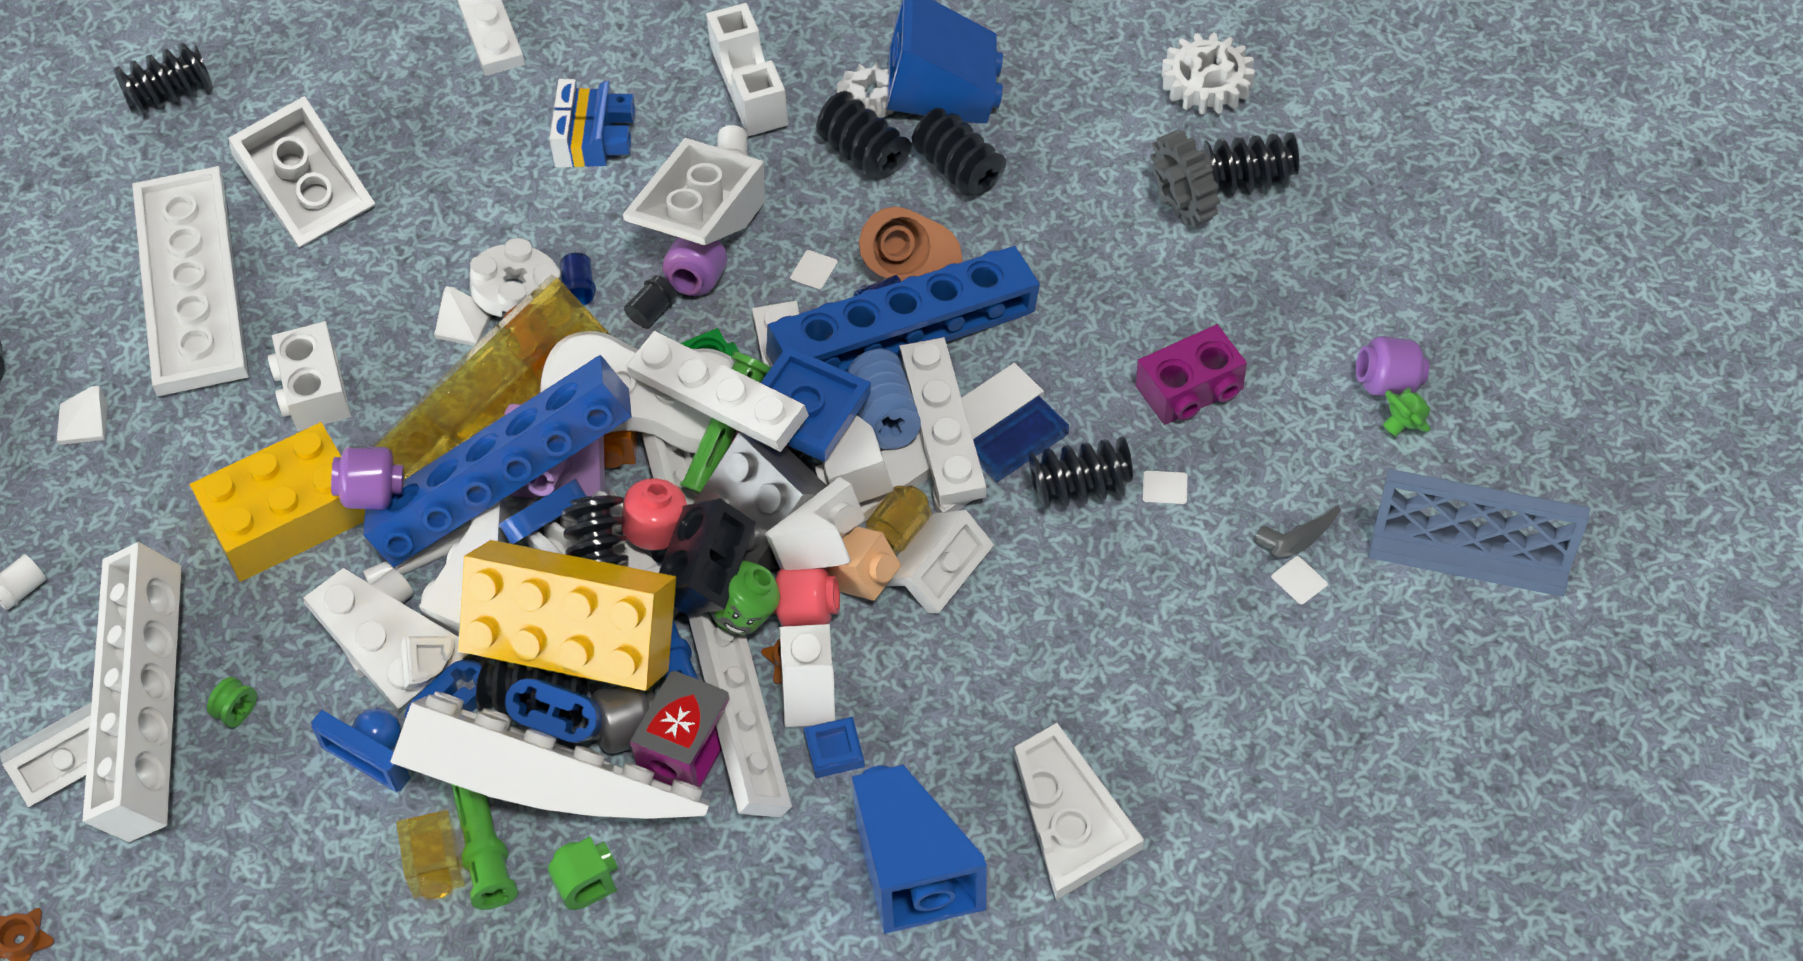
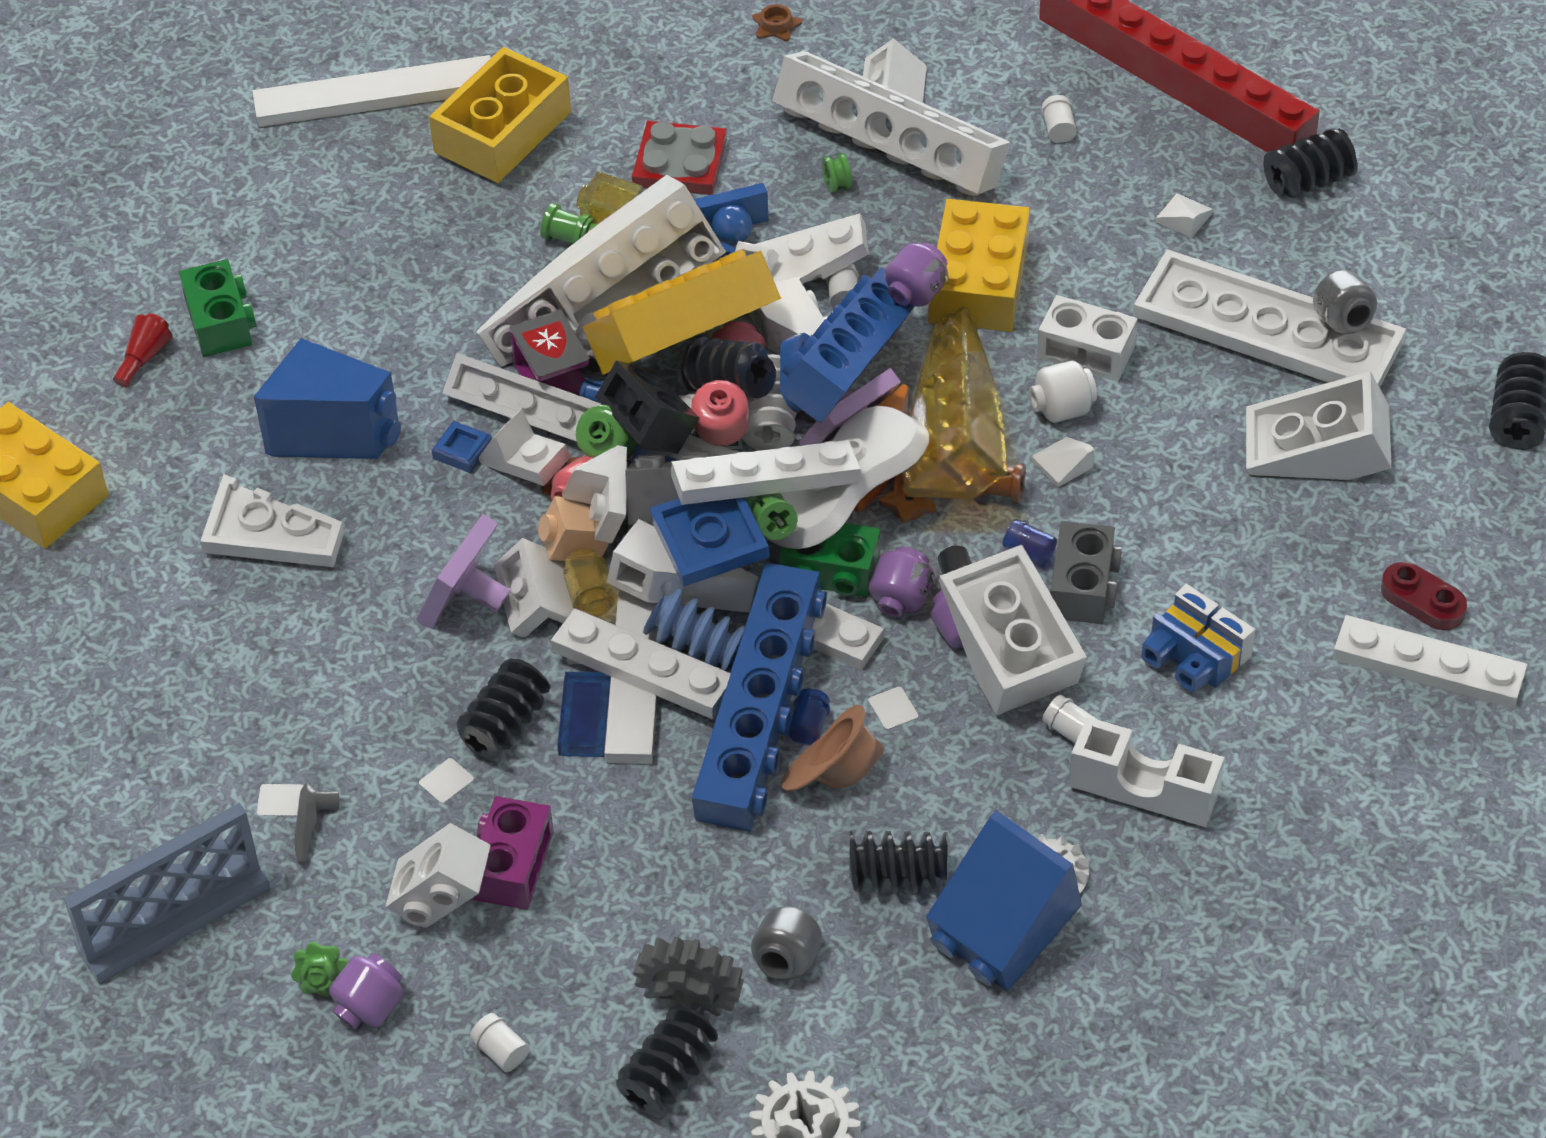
camera: 130 degrees right, 5 degrees down
(144, 211) = (1345, 302): none -> flat silver head
(303, 865) = (681, 151): none -> light grey piece
(392, 348) = (1063, 391): none -> white head
(419, 44) = (1422, 595): none -> dark red plate
(505, 262) = (1059, 477): white plate -> none
(550, 721) = (627, 284): blue beam -> none
(583, 221) = (1083, 571): none -> dark grey brick
(583, 873) = (514, 266): bright green plate -> none
(697, 314) = (901, 581): none -> medium lavender head
(862, 136) = (976, 806): black piece -> none
(990, 593) = (463, 576): none -> lavender tile
(1088, 170) = (786, 943): none -> flat silver head
(1263, 378) = (438, 876): none -> white brick
(1335, 272) = (499, 1042): none -> white piece

